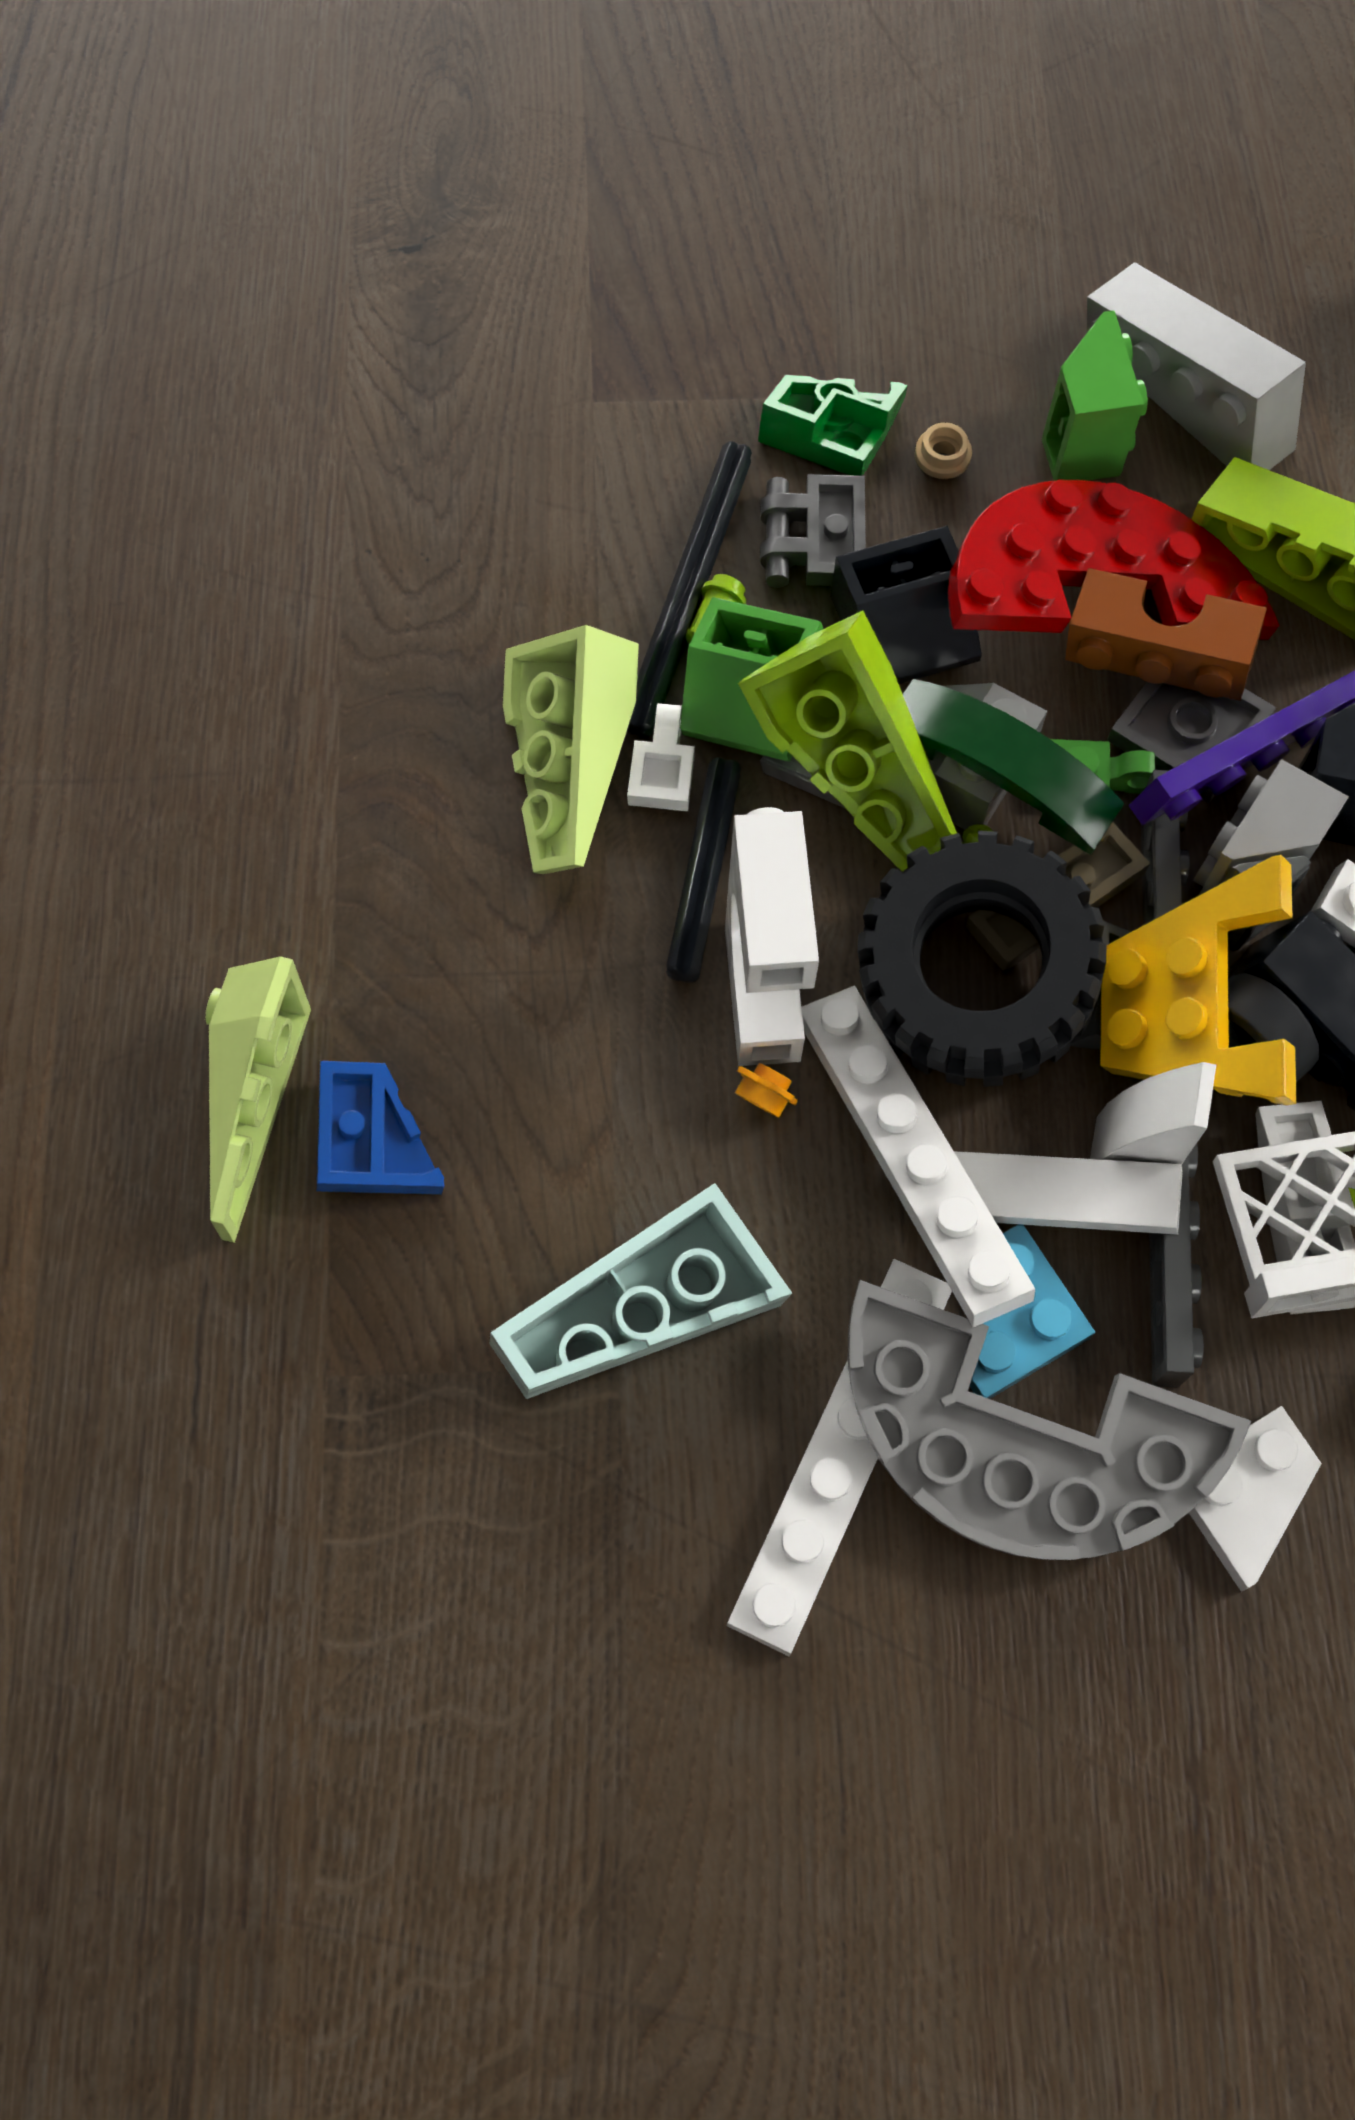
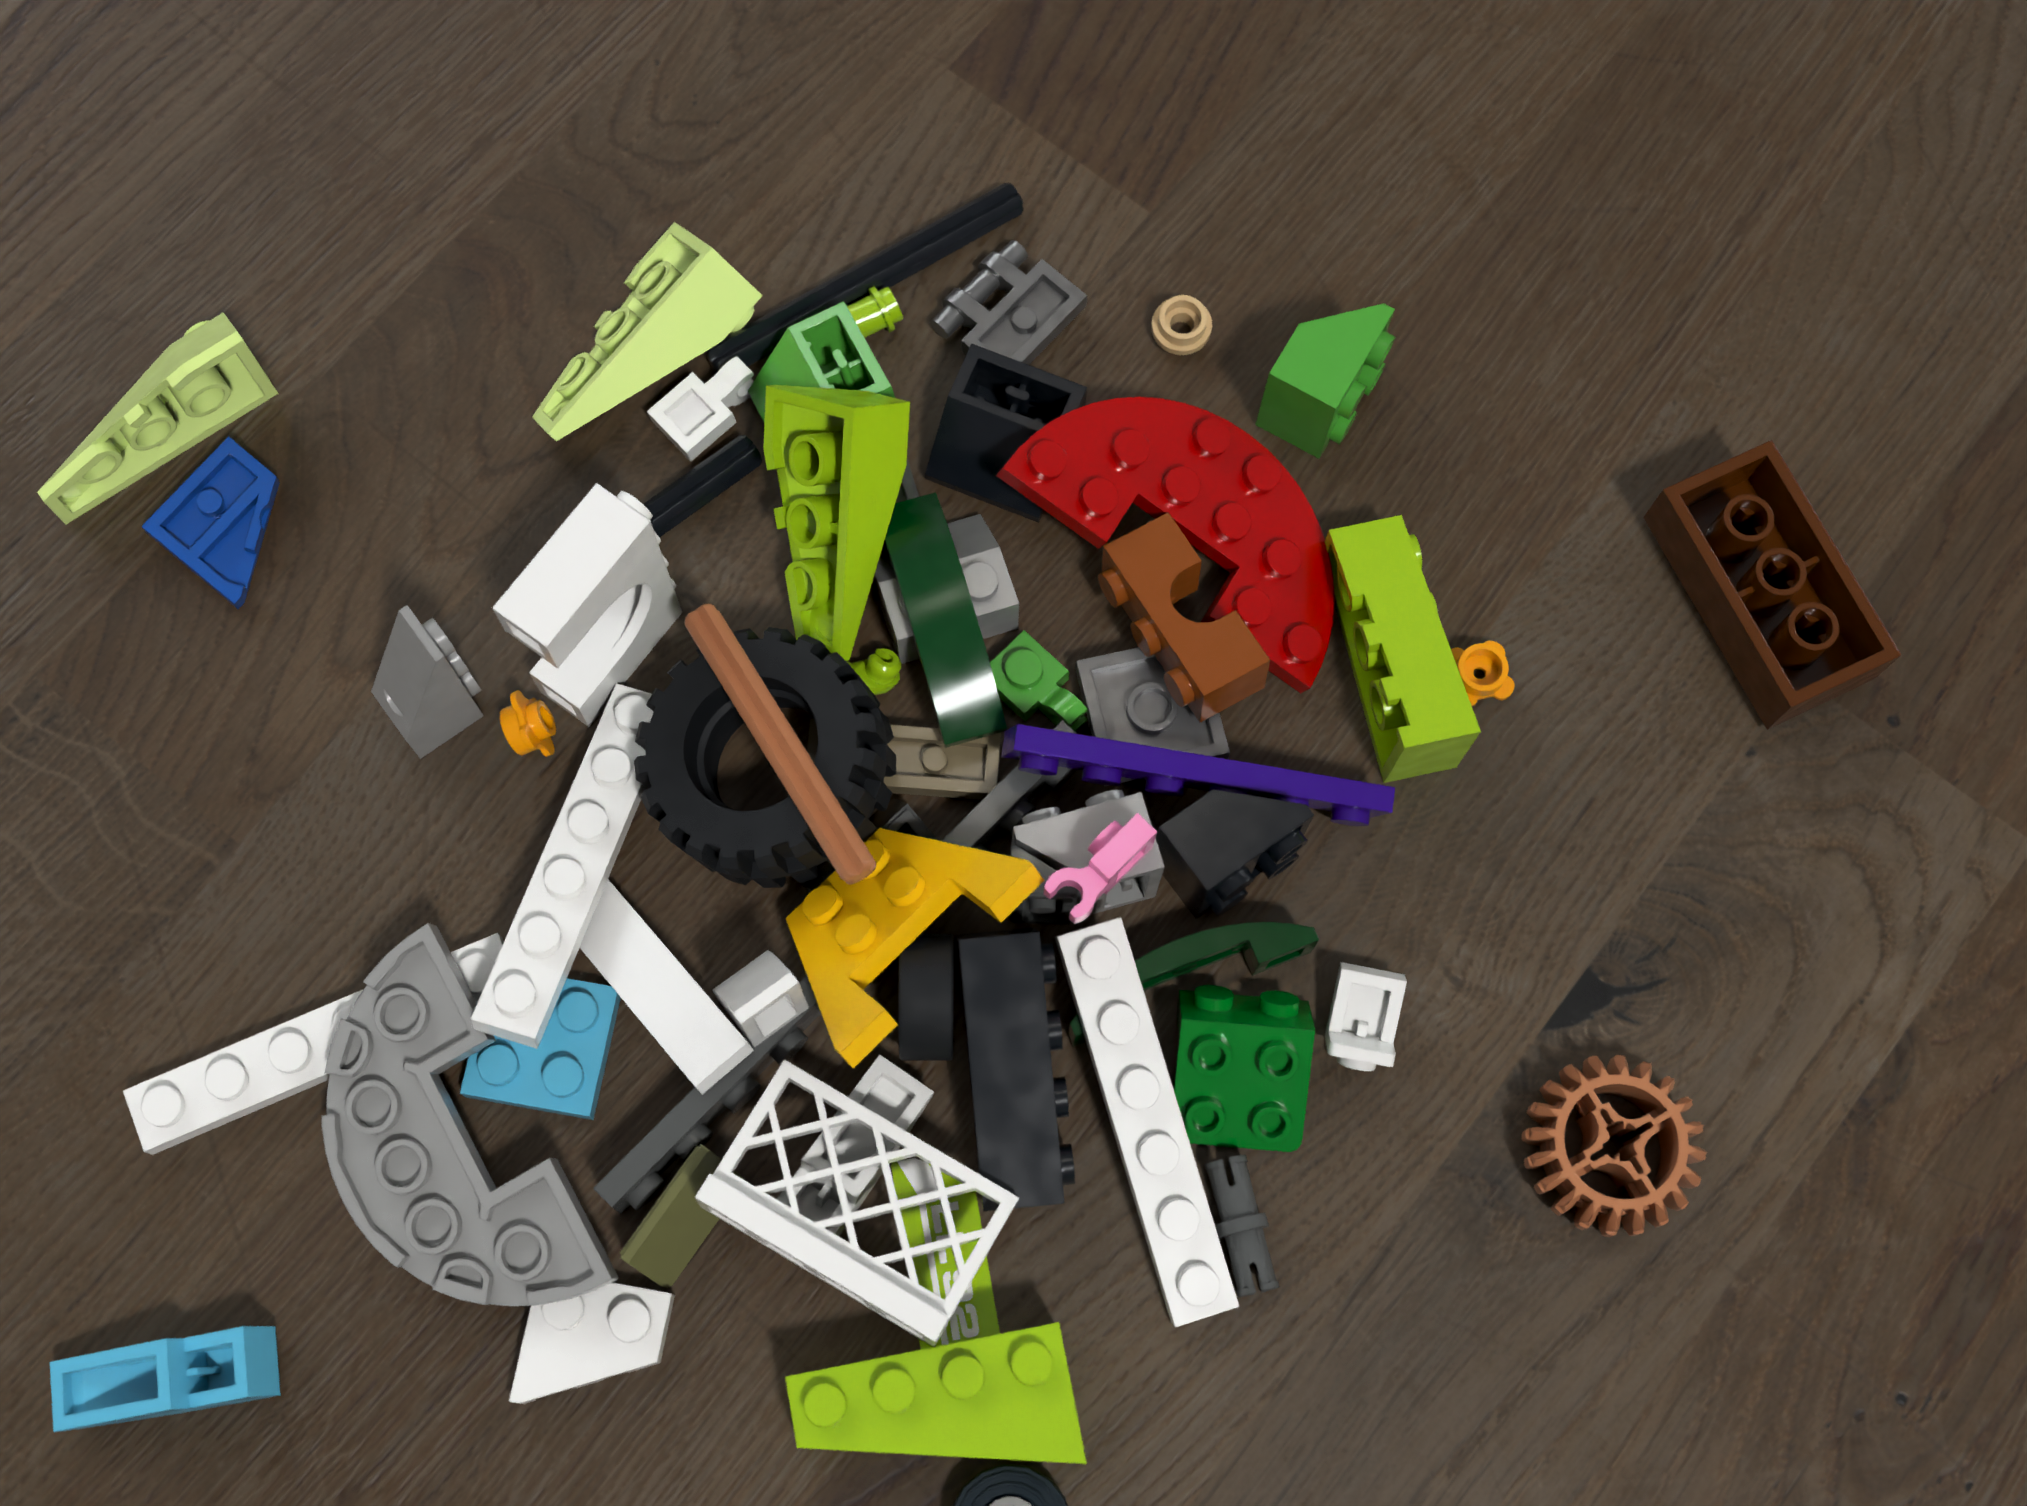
camera: 40 degrees right, 5 degrees up
(650, 1293) = (296, 805): light aqua wedge -> none
(676, 1108) = (425, 684): none -> light grey slope
(829, 421) = (1116, 228): green slope -> none
(979, 1811) = (164, 1378): none -> medium azure slope
(1013, 920) = (780, 744): none -> nougat axle
(1206, 369) = (1458, 416): light grey wedge -> none
(1229, 1346) = (674, 1224): none -> olive slope
(1325, 810) = (1115, 854): none -> bright pink plate

